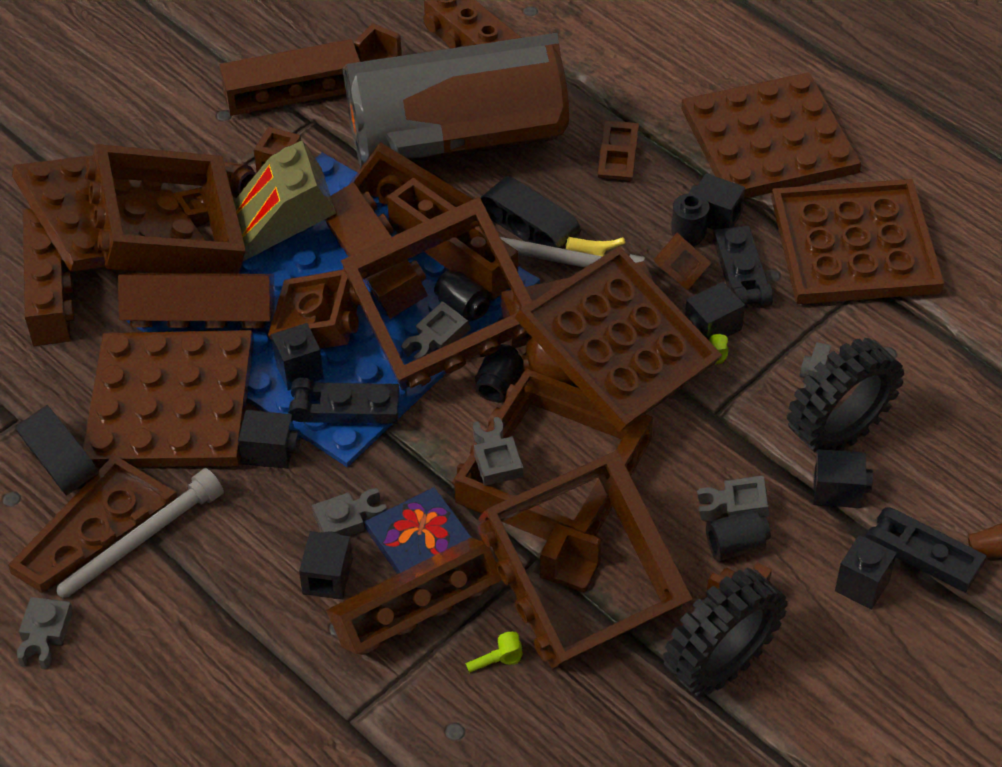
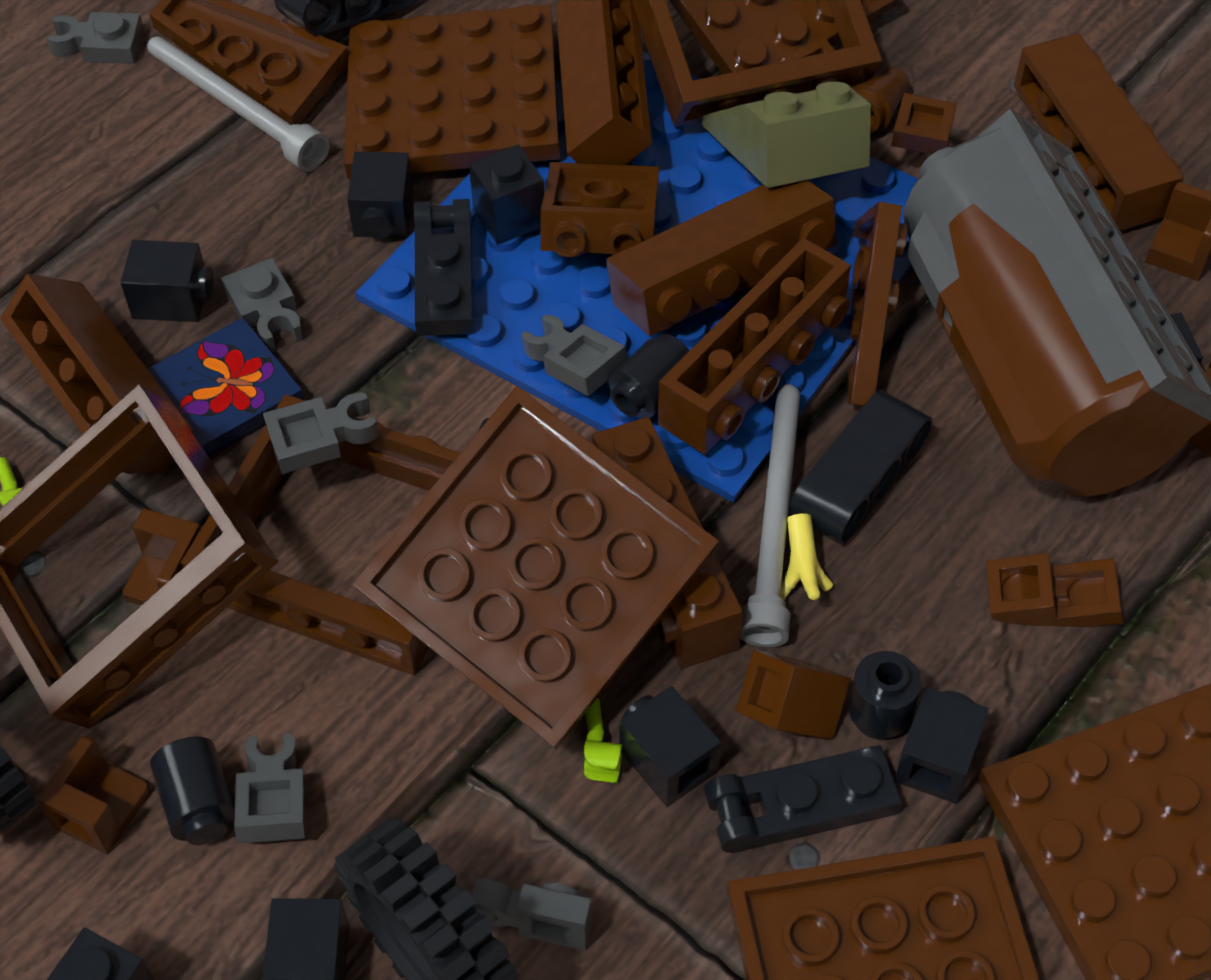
camera: 85 degrees right, 5 degrees up
(413, 242) = (659, 373): reddish brown window -> none

